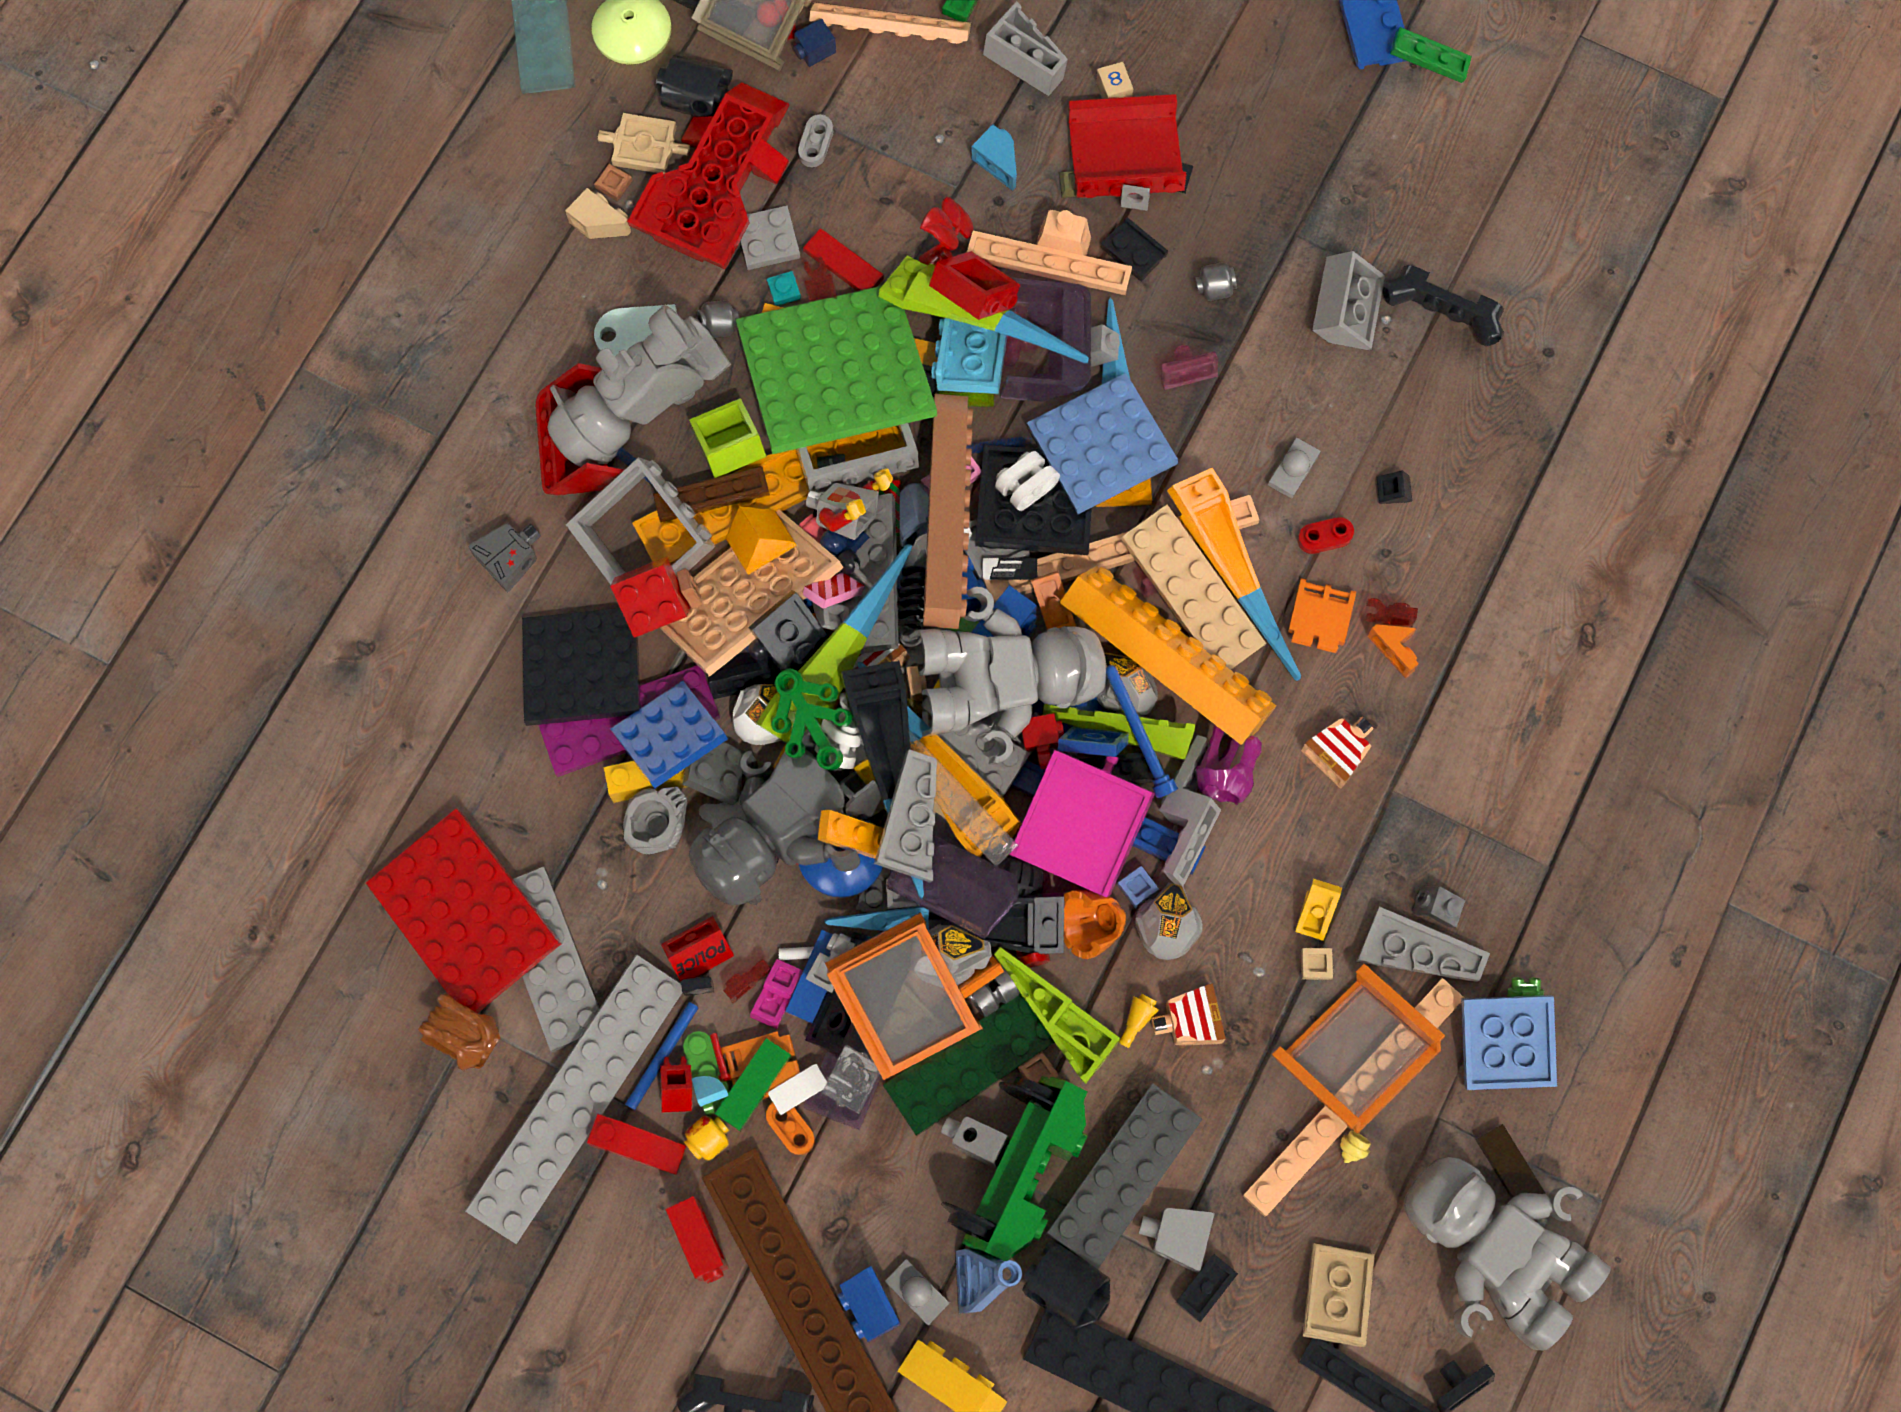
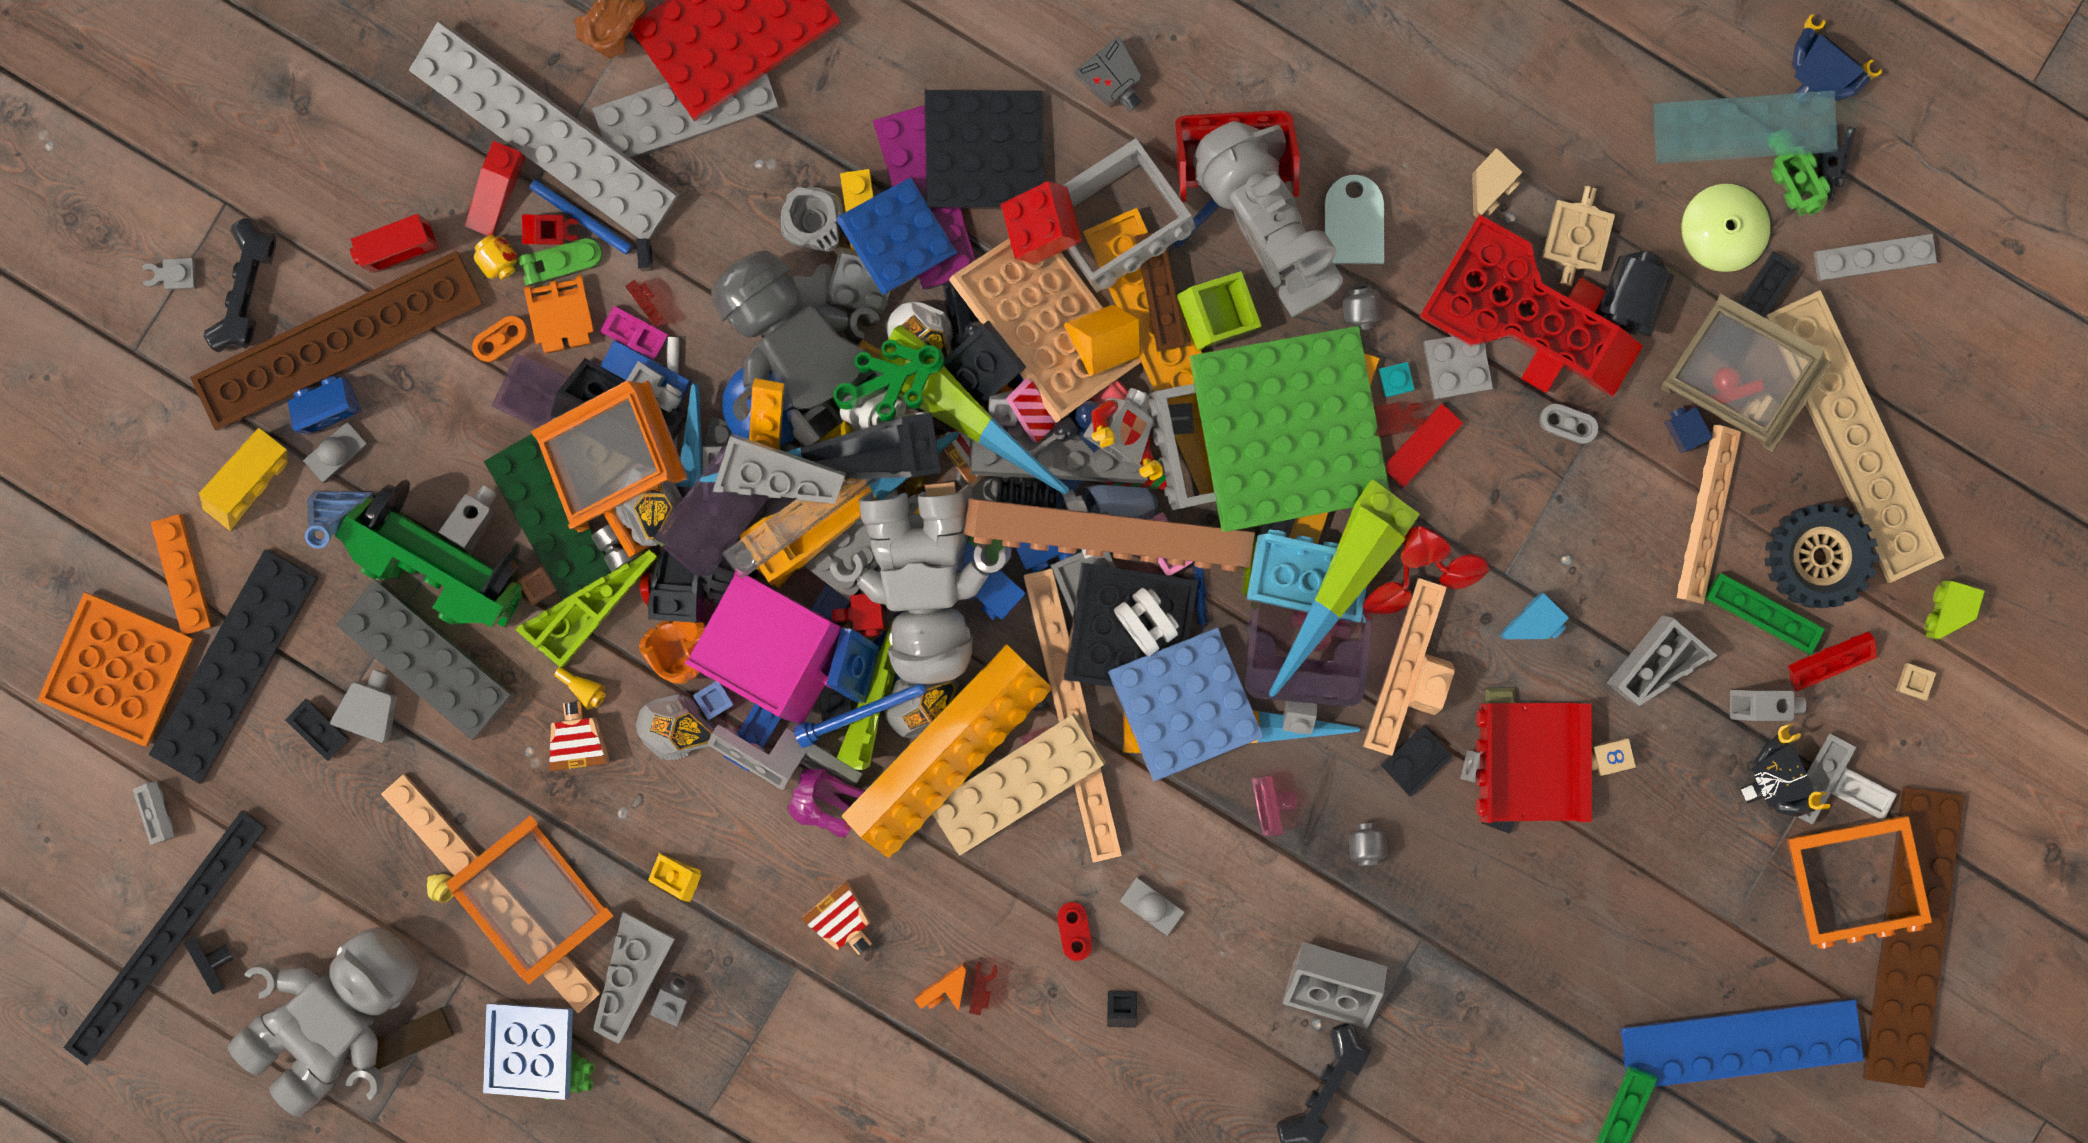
camera: 95 degrees right, 15 degrees up
(613, 182) = (1536, 201): nougat tile -> none
(689, 588) = (1052, 263): nougat tile -> none
(697, 949) = (683, 255): red panel -> none
(708, 1089) = (537, 260): medium azure tile -> none
(724, 1076) = (570, 273): red piece -> none
(753, 1084) = (540, 304): green tile -> none
(797, 1089) = (534, 348): white sticker -> none
(851, 1079) = (533, 399): clear piece -> none
(974, 285) = (1364, 553): red window -> none
(1009, 568) = (1056, 597): sticker -> none
(1049, 593) = (1021, 637): orange plate -> none
(1067, 1286) = (321, 596): black cylinder -> none
(1212, 523) = (1083, 812): light orange plate -> none
(1316, 963) = (622, 870): tan plate -> none
(1321, 616) = (984, 915): orange plate -> none
(1338, 1295) = (300, 855): tan tile -> none

